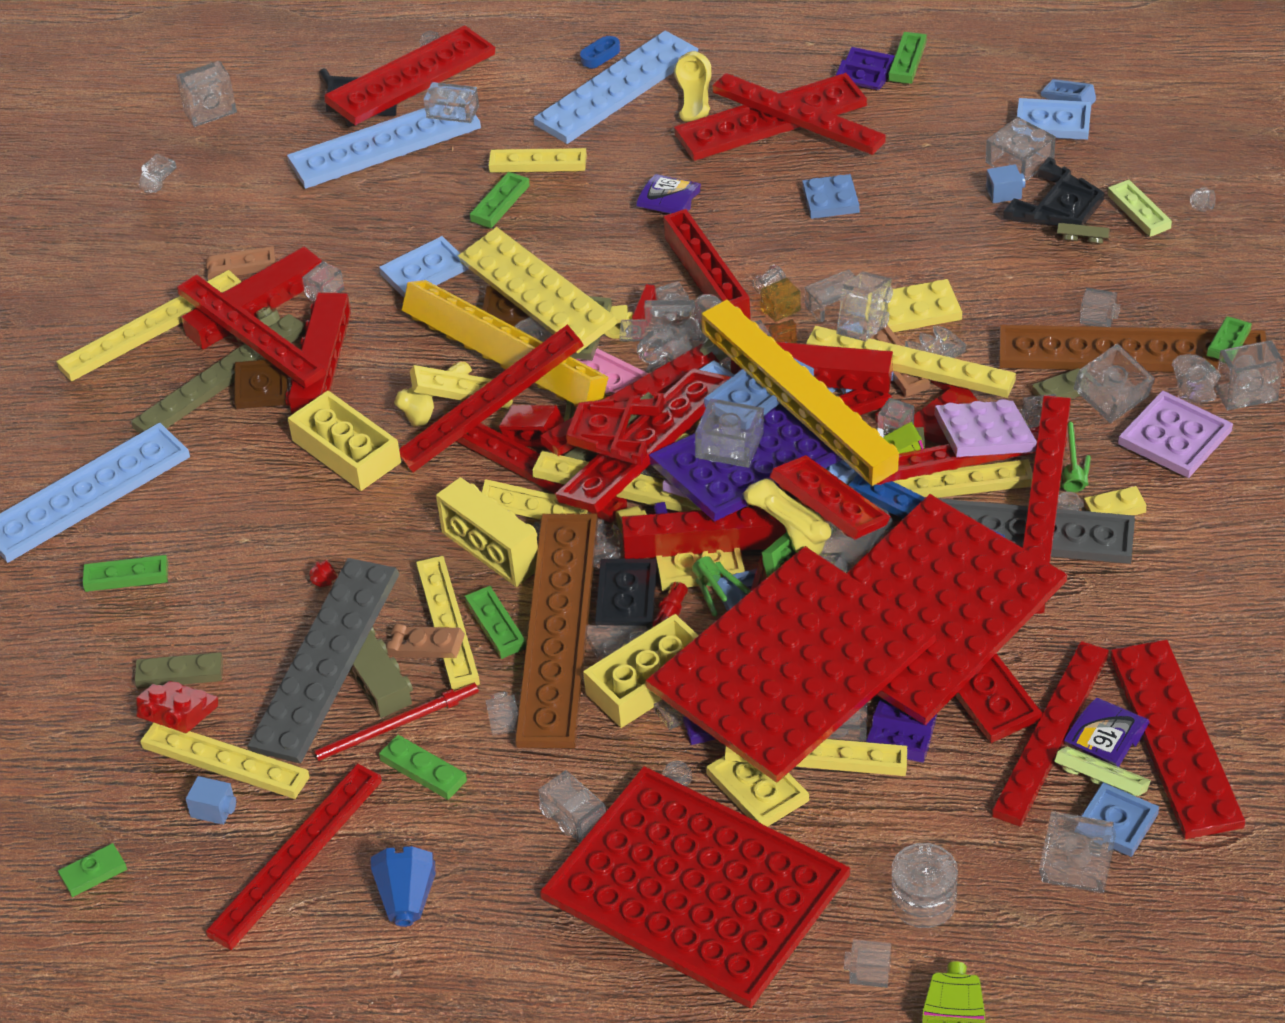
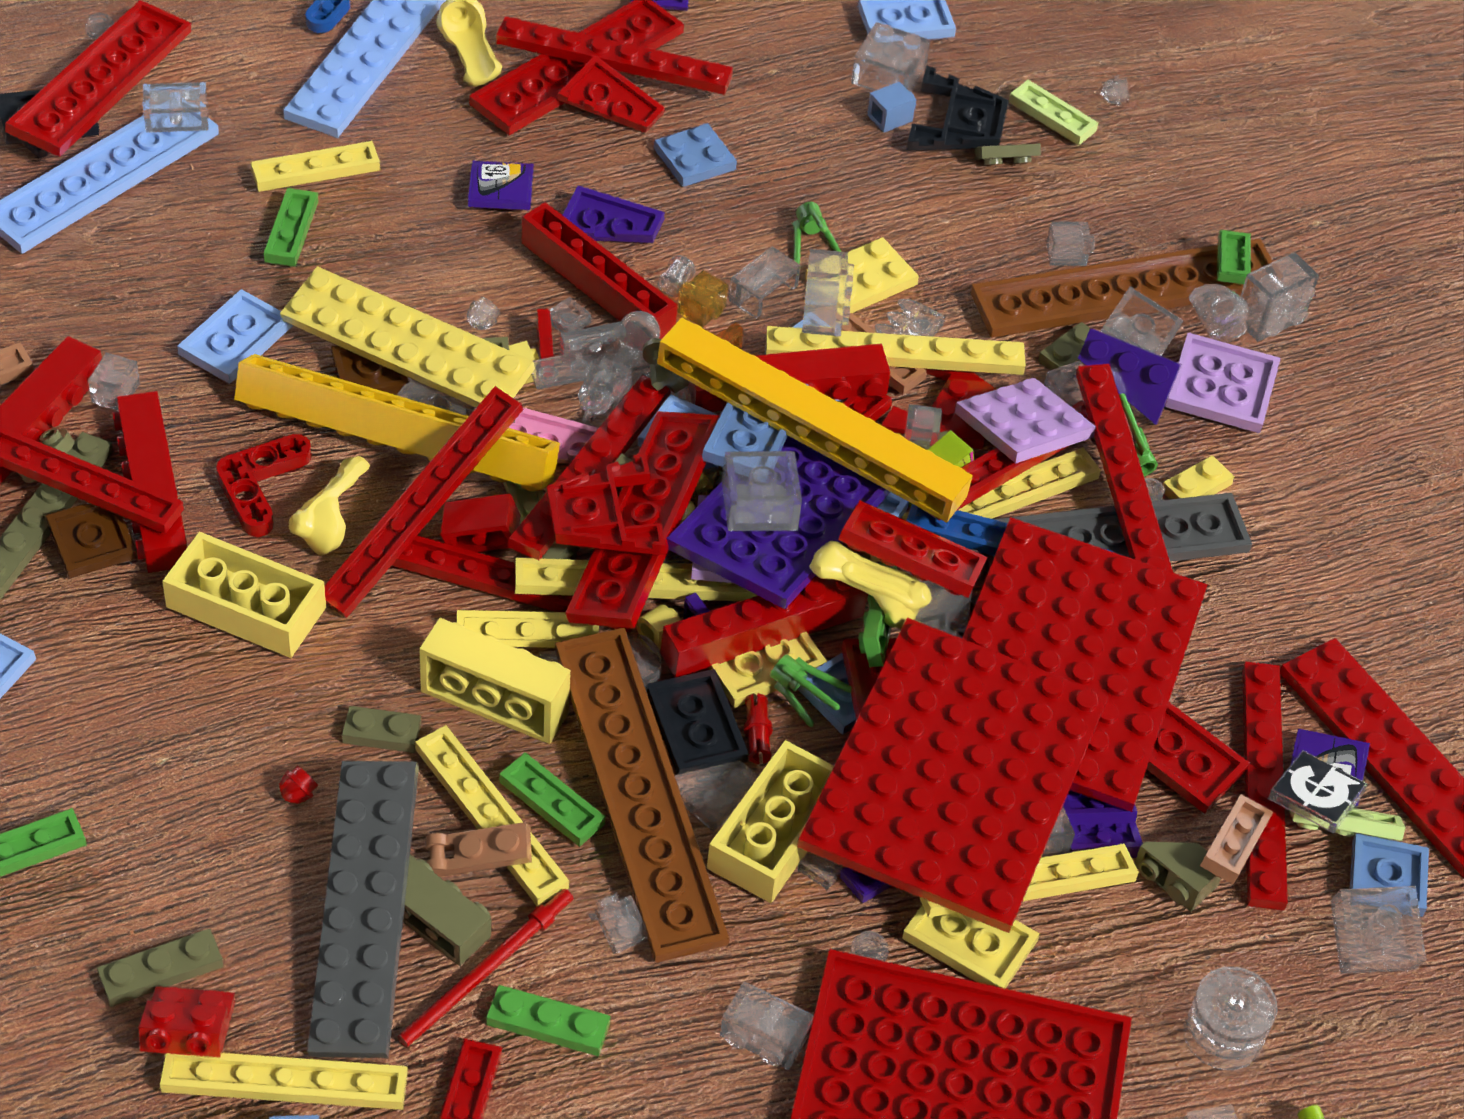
camera: 30 degrees left, 5 degrees up
(392, 362) = (250, 473): none -> red beam
(400, 550) = (381, 729): none -> olive plate
(447, 383) = (360, 491): light yellow plate -> none
(608, 283) = (482, 314): none -> clear plate
(739, 231) = (612, 218): none -> dark purple wing
(781, 142) = (611, 96): none -> red wing
(895, 259) = (810, 221): none -> bright green plant
(947, 777) = (1177, 871): none -> olive slope
(993, 760) = (1236, 839): none -> nougat plate
(1081, 742) = (1317, 791): none -> tile
(1094, 410) = (1137, 372): none -> dark purple wing

